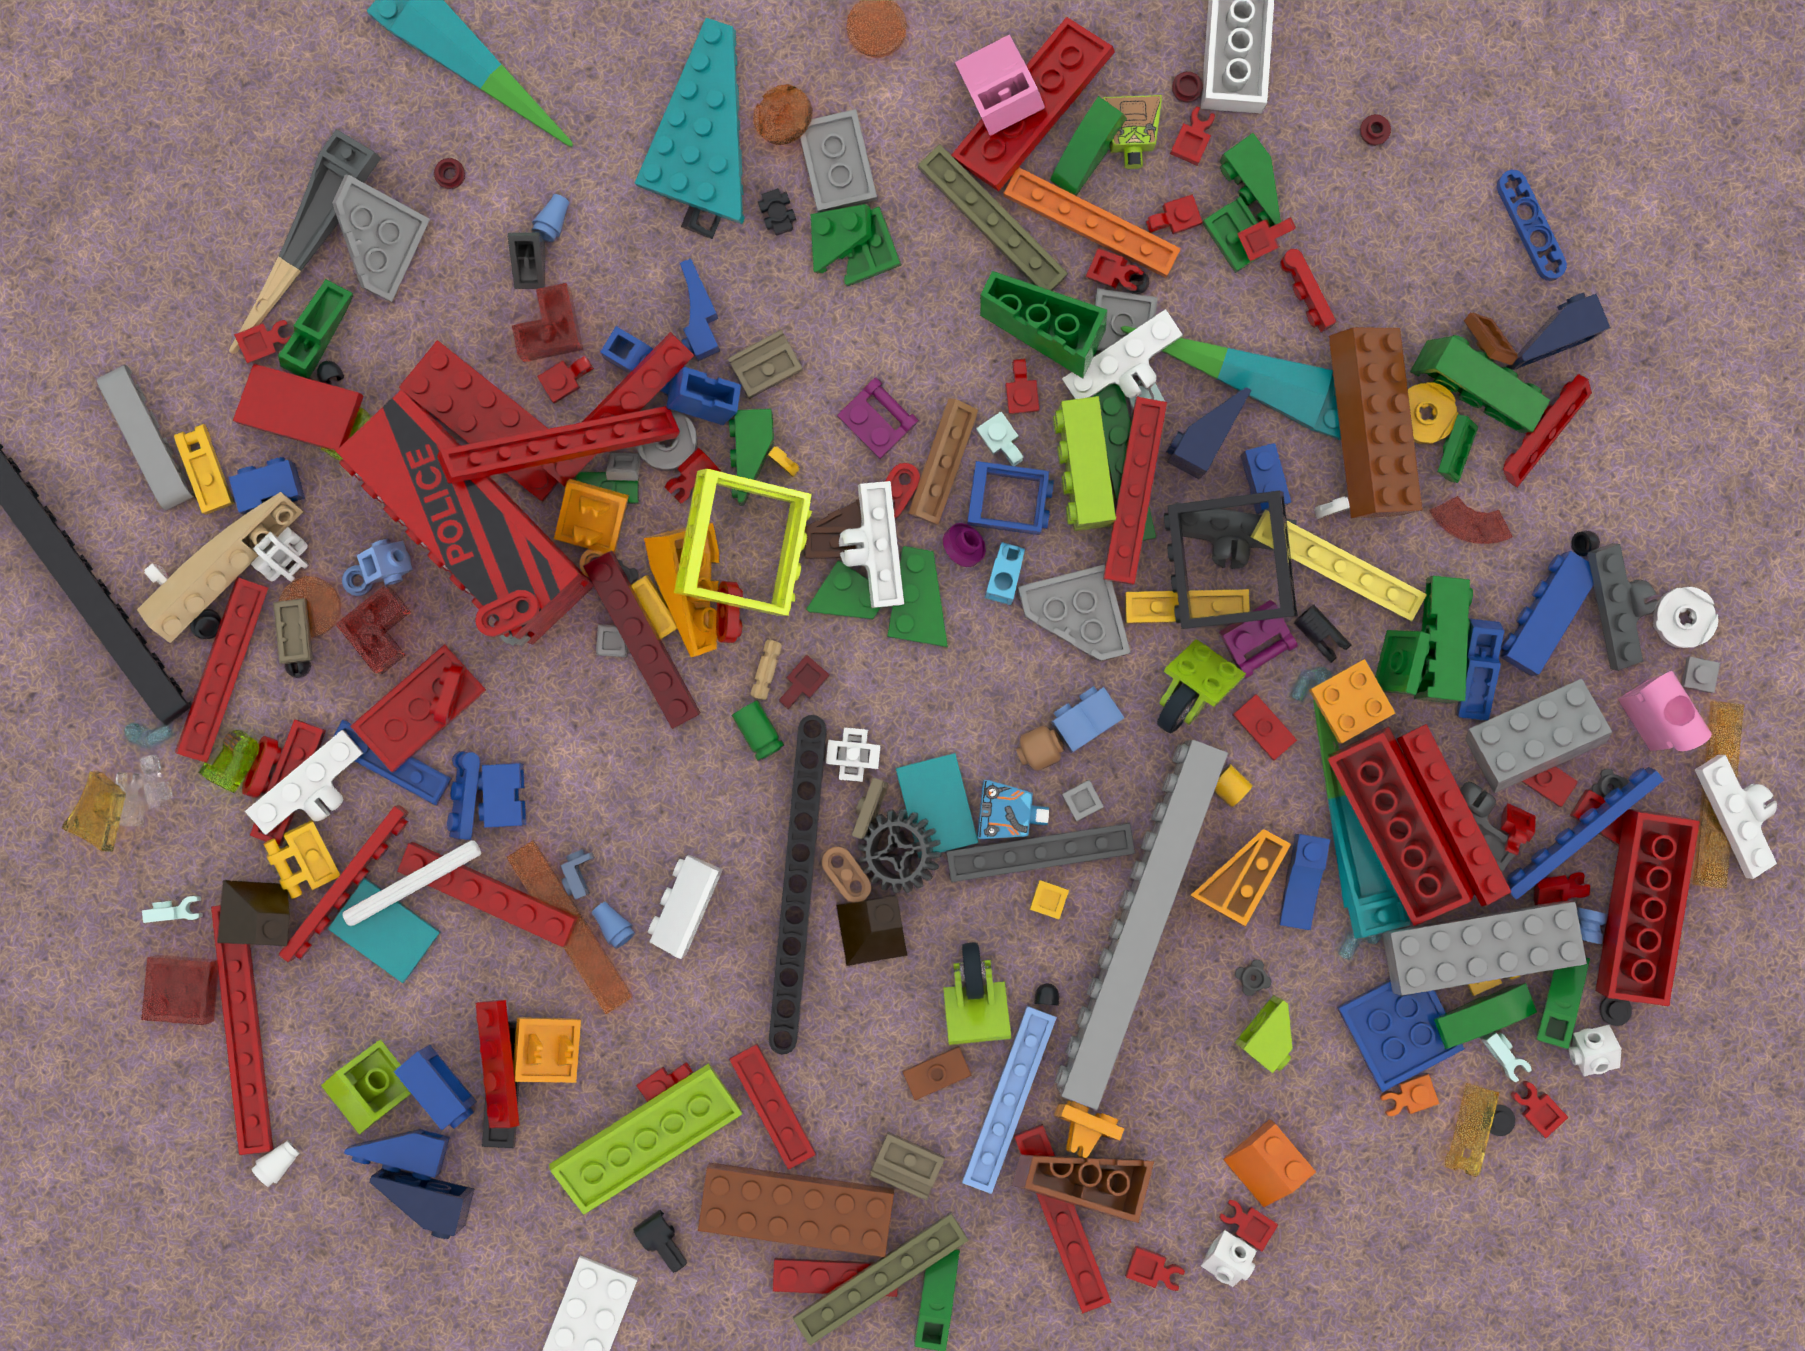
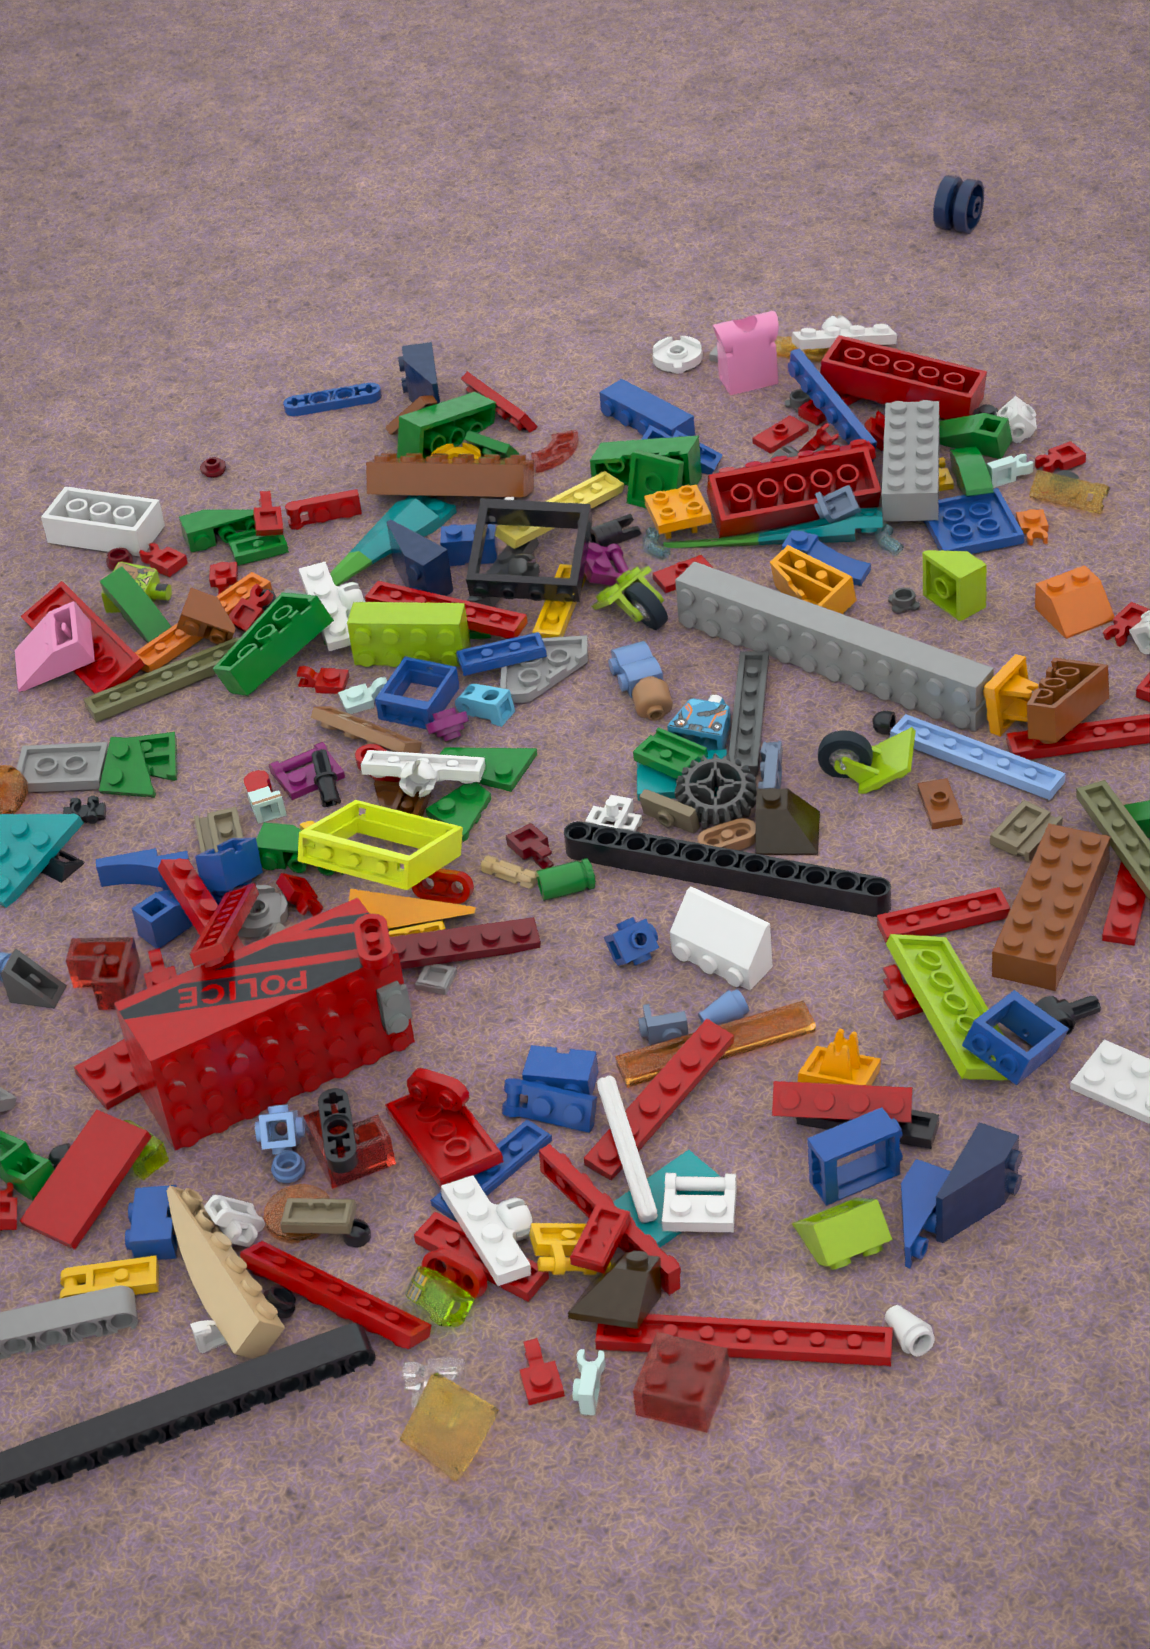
camera: 65 degrees left, 45 degrees down
(146, 737) = (383, 1381): clear light blue arm -> none
(174, 867) = (540, 1379): none -> red plate
(299, 889) = (600, 1238): none -> red plate
(346, 642) = (346, 1139): none -> black beam
(363, 960) = (699, 1212): none -> white plate
(588, 1173) = (1028, 1023): none -> blue window
(677, 819) = (632, 941): none -> blue brick
(832, 381) = (264, 802): none -> light aqua leg
(856, 445) = (325, 779): none -> black axle
(947, 791) = (668, 753): none -> green plate
(950, 896) = (772, 766): none -> sand blue hinge
(1049, 899) = (794, 711): yellow plate -> none
(1077, 228) = (205, 617): none -> dark orange slope
(1078, 571) = (501, 653): none -> blue tile
(1082, 800) = (709, 681): light grey plate -> none
(1372, 883) = (837, 505): none -> sand blue bracket
(1538, 735) = (743, 421): light grey brick -> none
(1584, 542) = (595, 387): black hinge -> none
(1619, 605) = (654, 373): dark grey plate -> none

